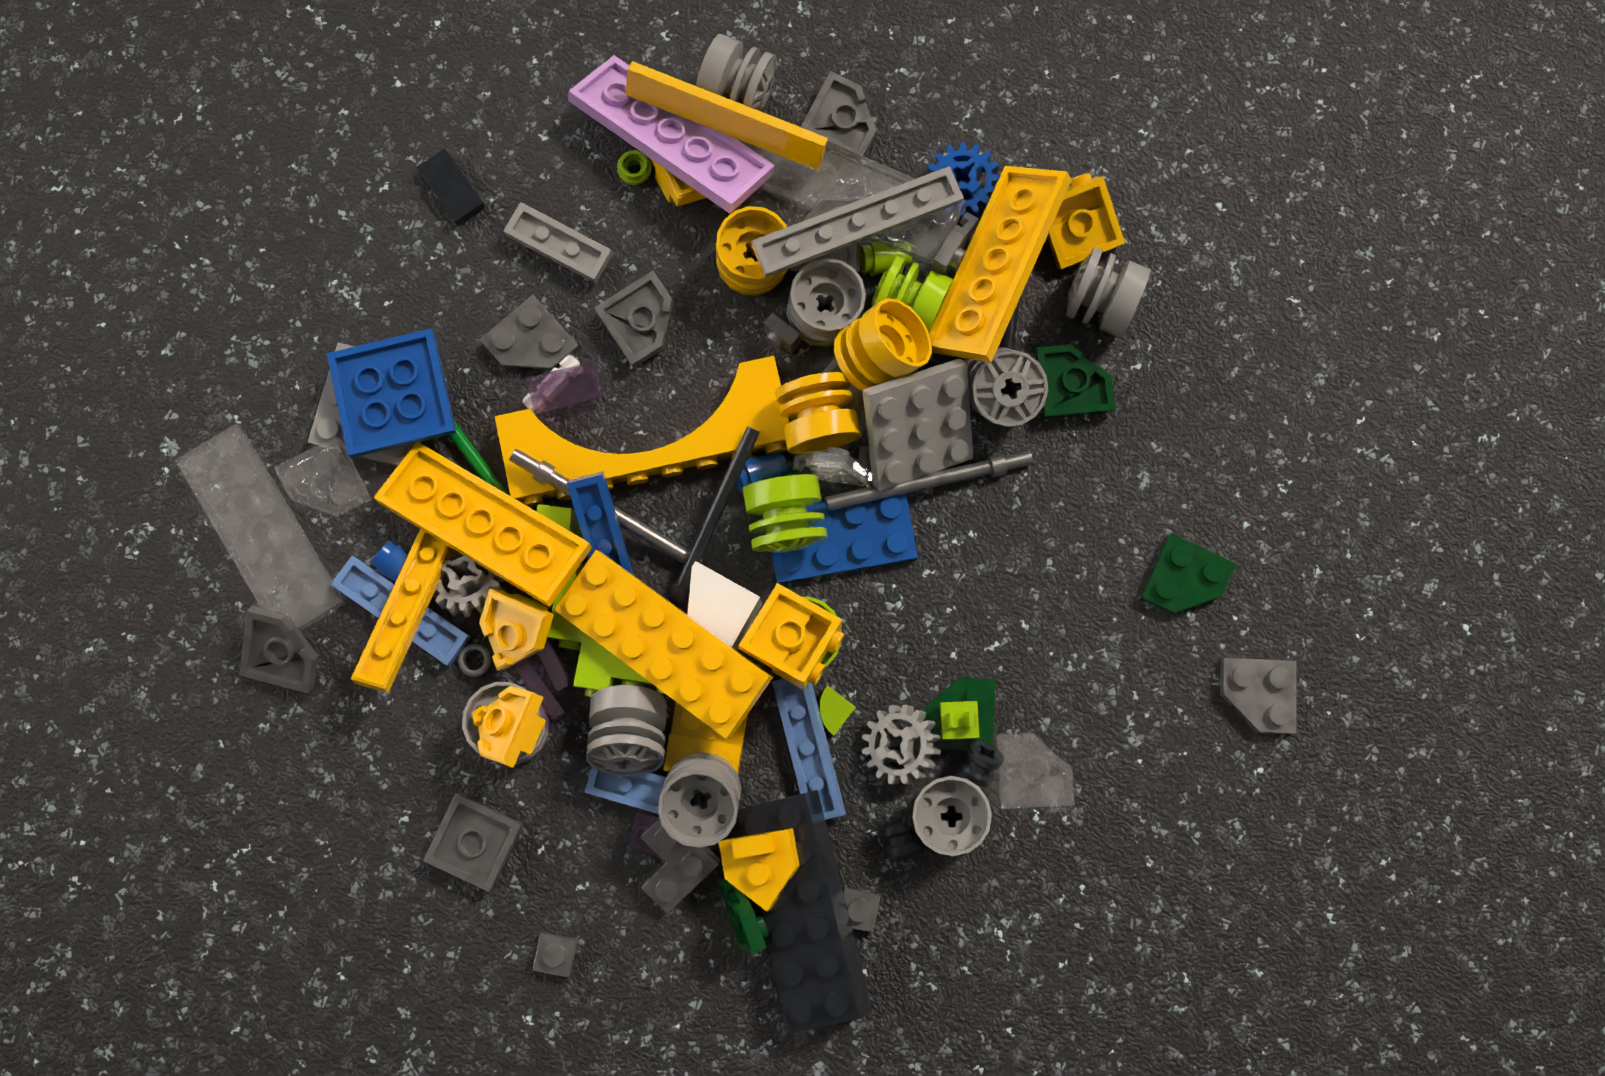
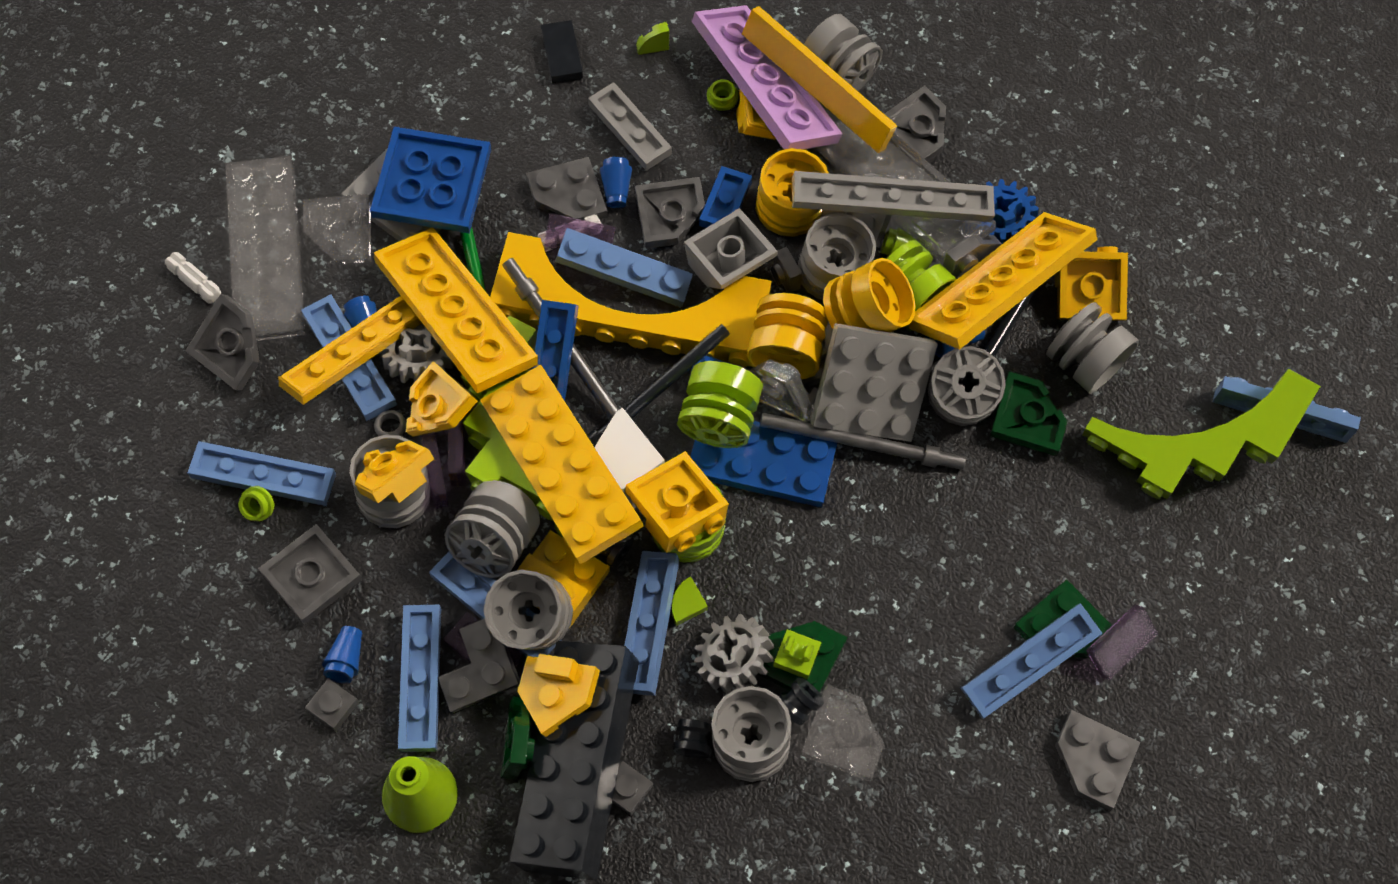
camera: 20 degrees right, 15 degrees down
(206, 594) = (192, 277): none -> white axle
(377, 765) = (249, 469): none -> medium blue plate
(387, 798) = (249, 506): none -> lime plate
(542, 134) = (655, 40): none -> lime tile
(544, 905) = (344, 656): none -> blue cone
(572, 309) = (616, 180): none -> blue cone
(623, 401) = (623, 267): none -> medium blue plate
(624, 895) = (419, 678): none -> medium blue plate
(685, 990) = (419, 794): none -> lime cone
(689, 283) = (726, 195): none -> blue plate
(720, 343) = (728, 250): none -> light grey slope
(1171, 630) = (1031, 660): none -> medium blue plate
(1244, 572) = (1122, 642): none -> tile
(1298, 308) = (1211, 452): none -> lime arch
(1318, 270) = (1318, 419): none -> medium blue plate

